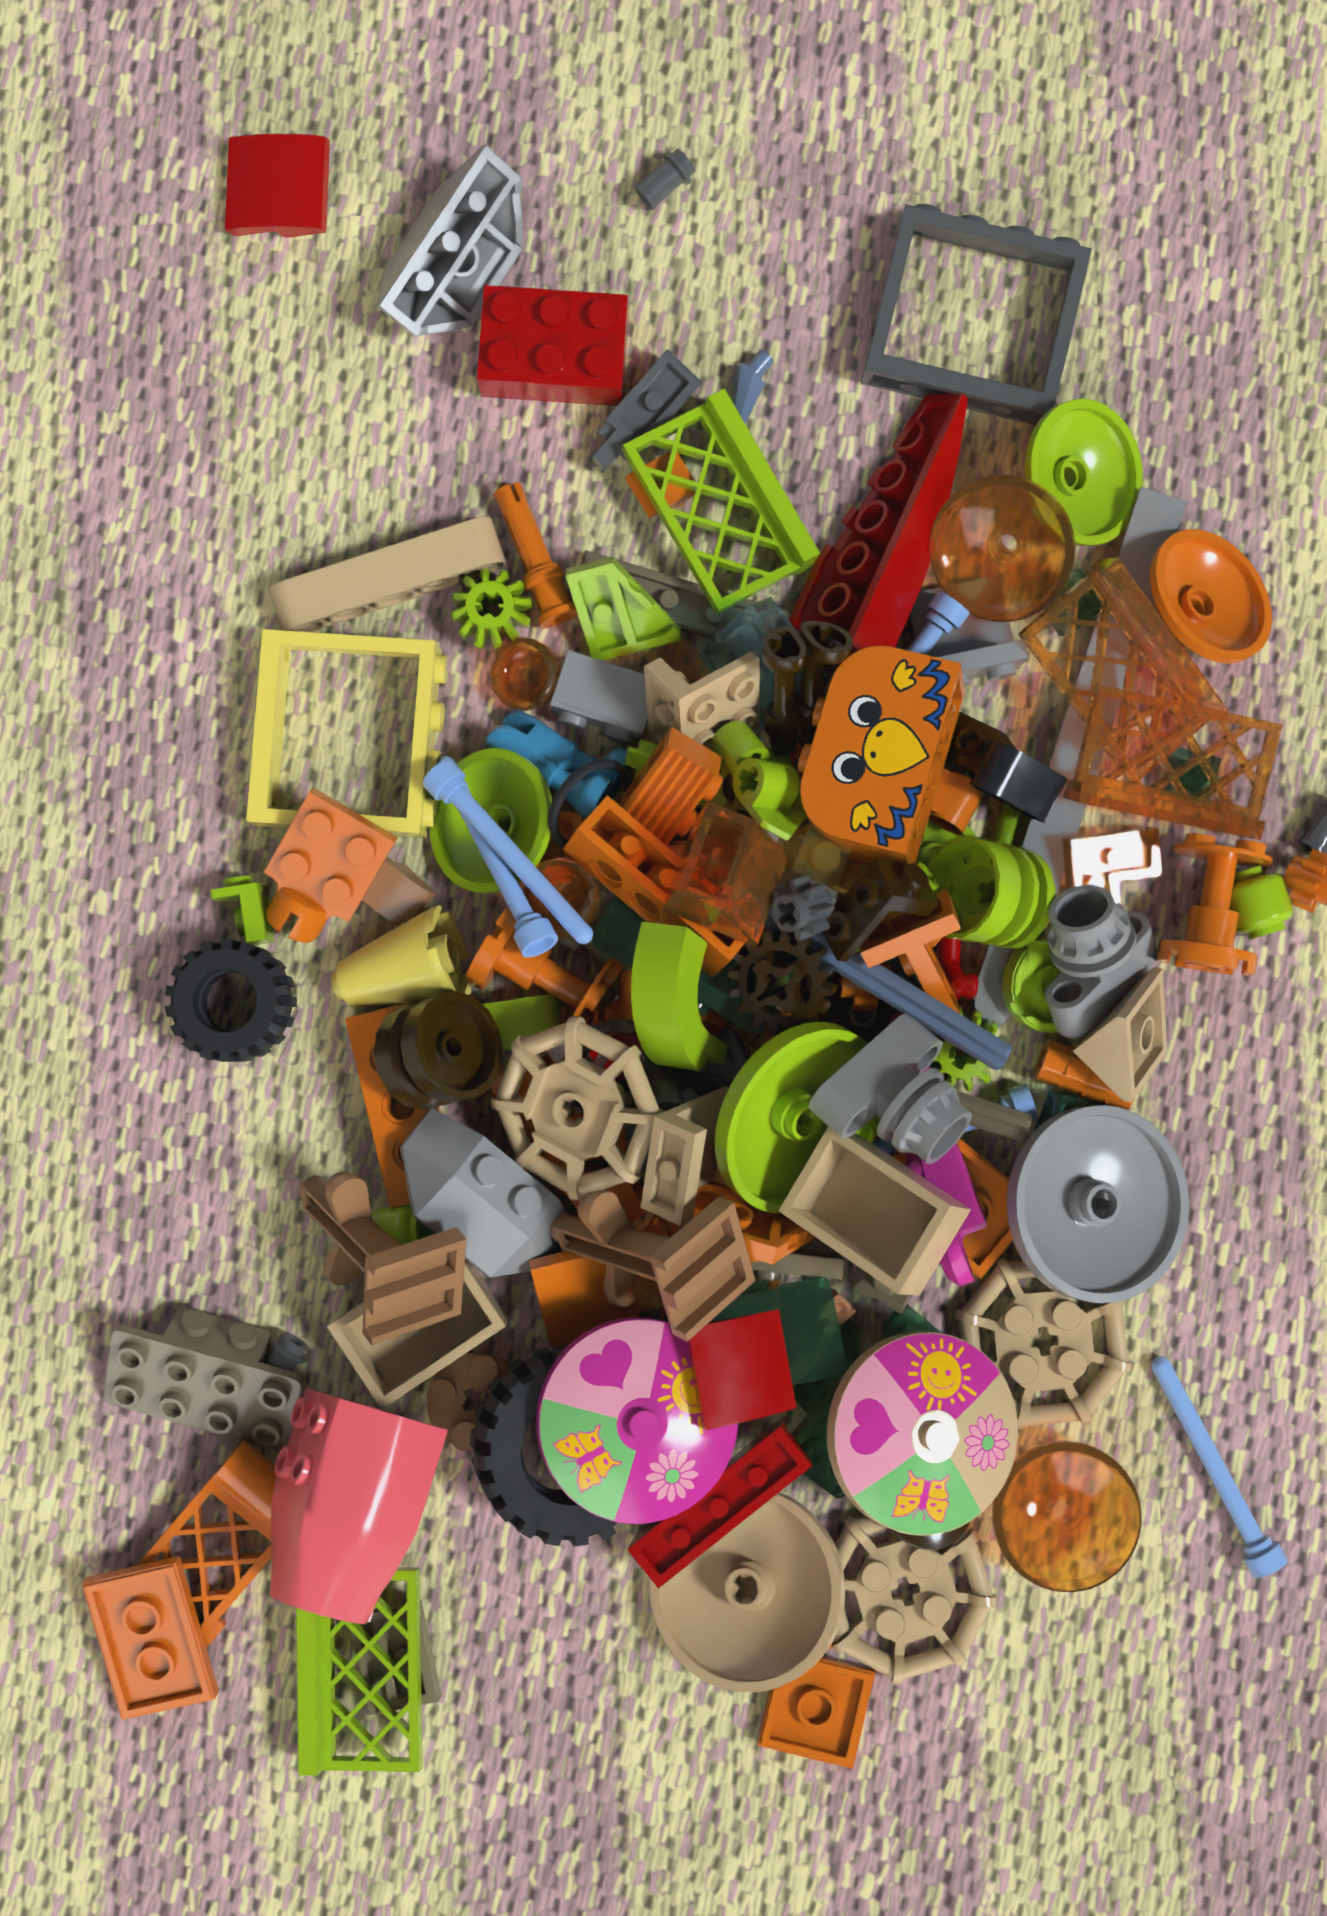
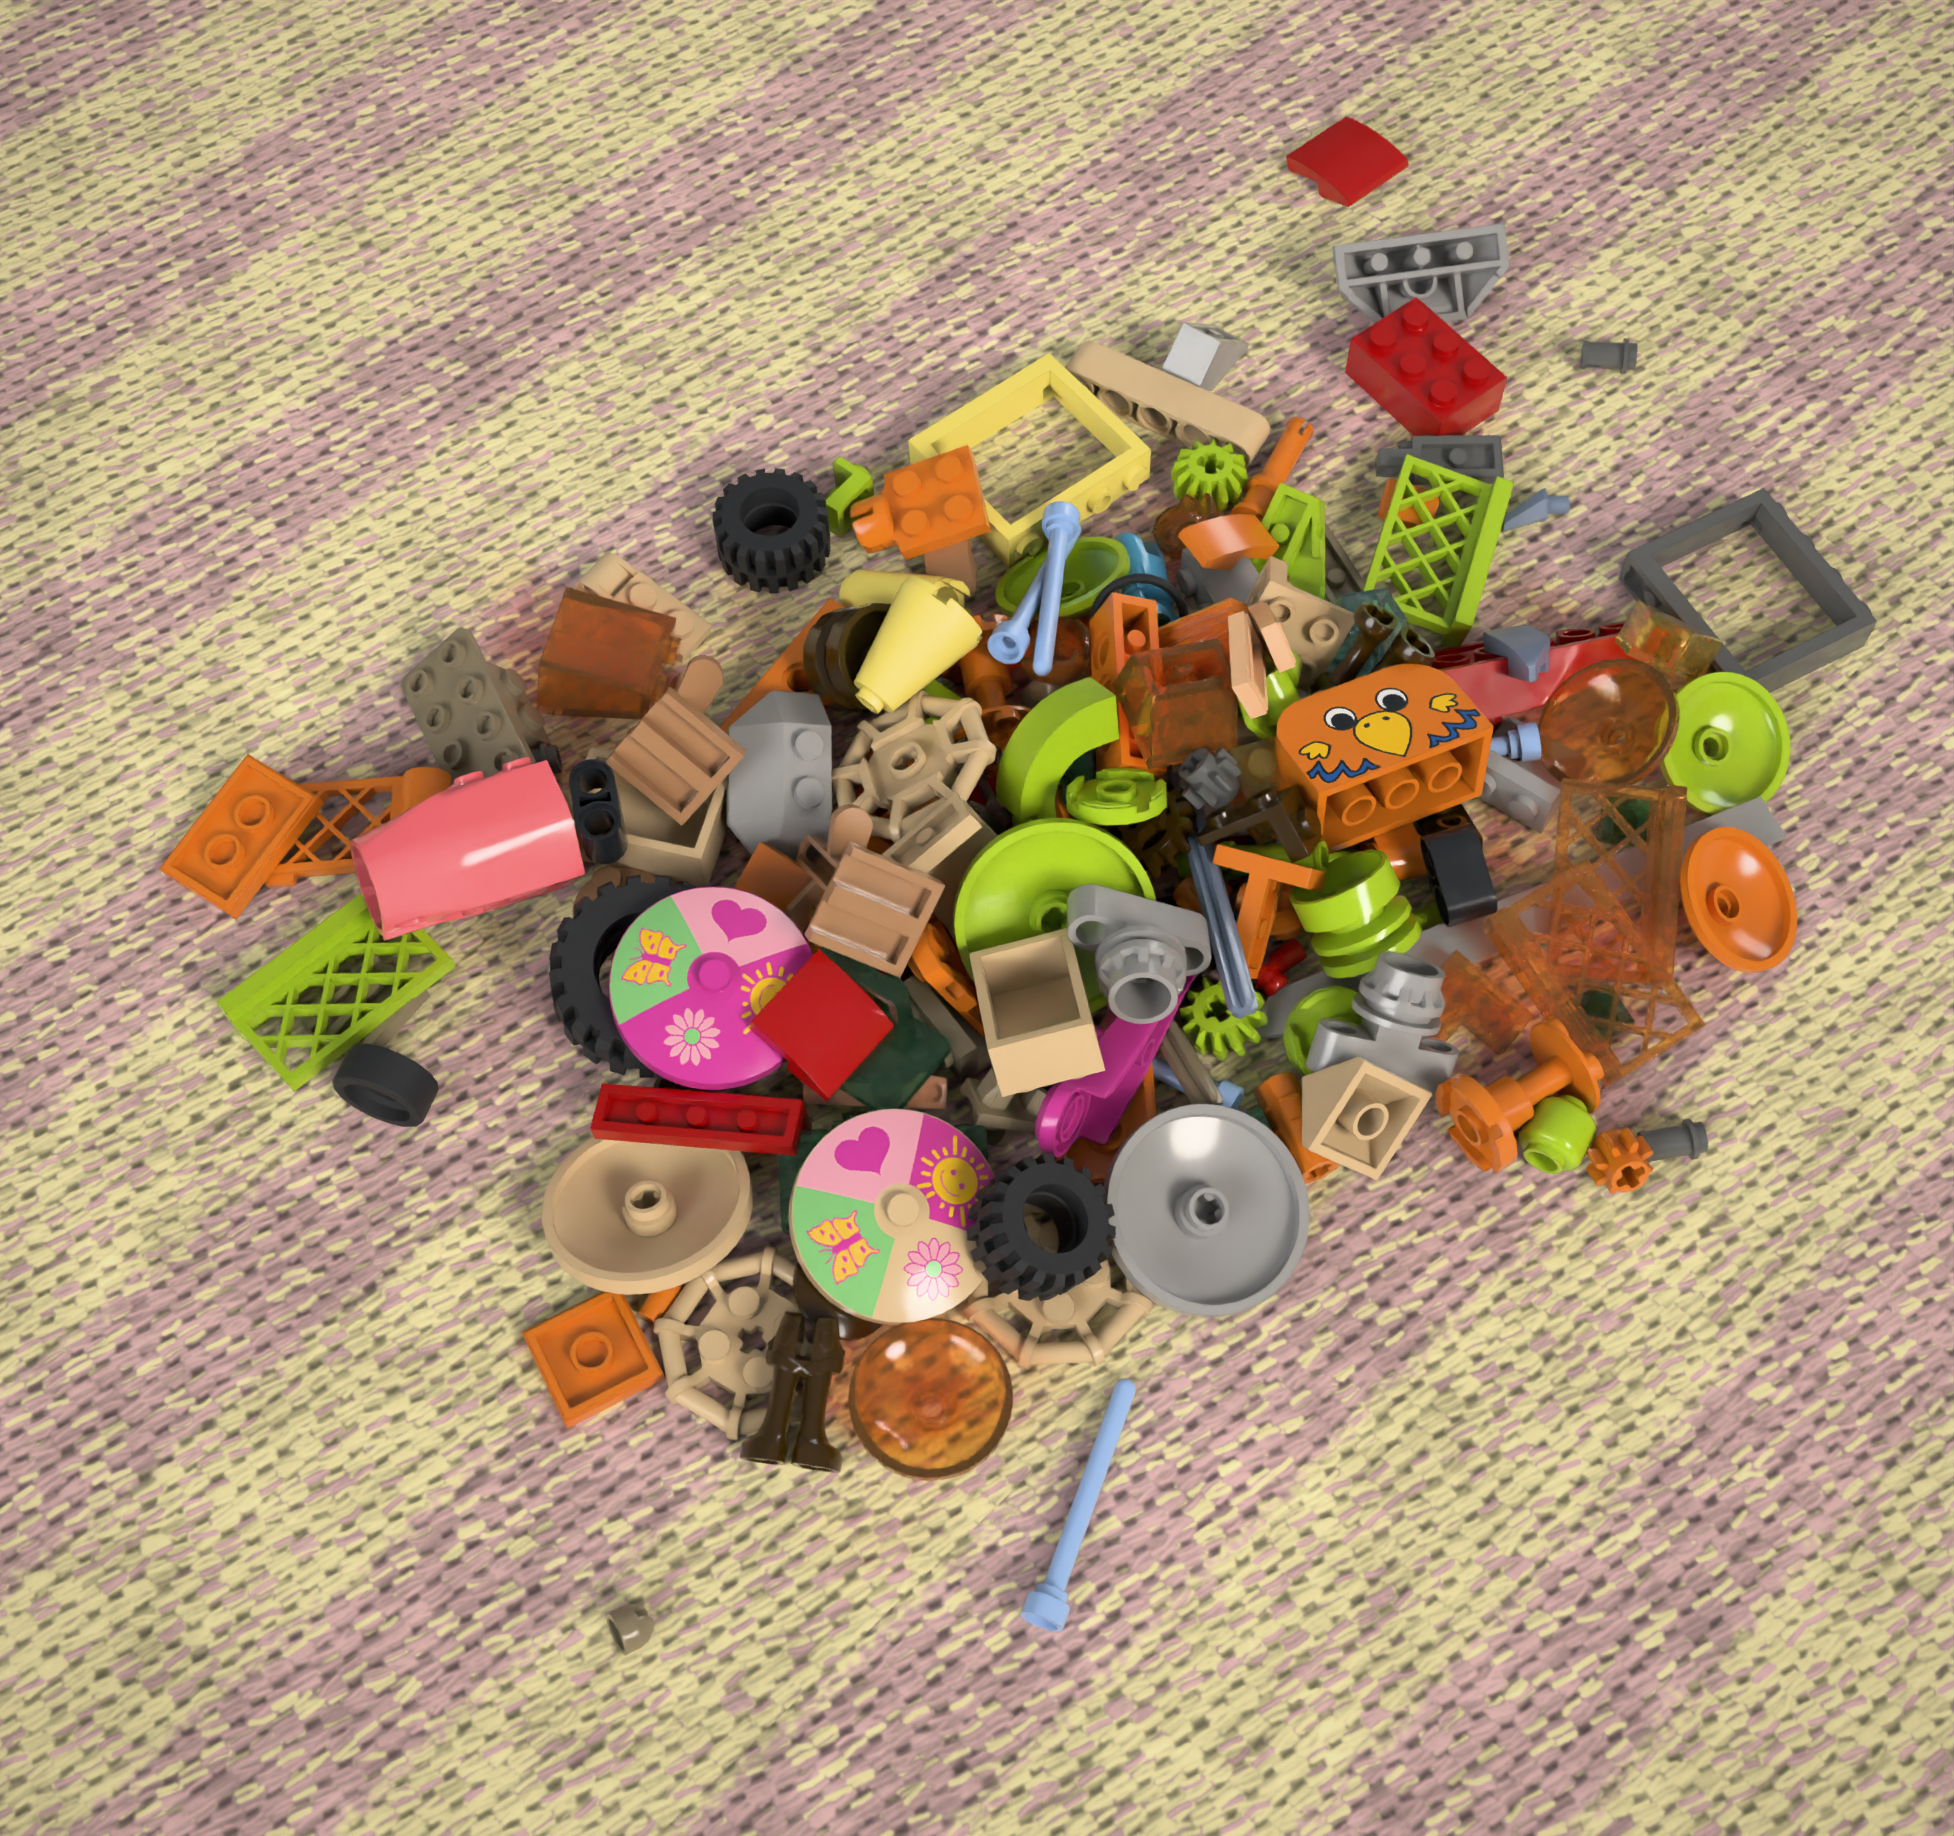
camera: 45 degrees right, 25 degrees down
(207, 1158) = (621, 582): none -> tan plate
(247, 1238) = (605, 658): none -> clear orange slope
(370, 499) = (1203, 354): none -> slope
(399, 1388) = (598, 811): none -> black beam
(483, 1702) = (385, 1085): none -> black tyre
(484, 1023) = (914, 646): none -> light yellow cone
(581, 667) = (1226, 539): none -> orange slope
(731, 748) = (1272, 636): none -> light nougat tile
(746, 797) = (1247, 664): none -> light nougat tile
(760, 996) = (1116, 797): none -> lime tile
(884, 544) = (1524, 647): none -> sand blue slope
(977, 437) = (1667, 643): none -> clear yellow slope
(977, 1575) = (783, 1353): none -> dark brown piece
(1036, 1844) = (630, 1627): none -> dark tan hinge
(1061, 1337) = (1073, 1206): none -> black tyre

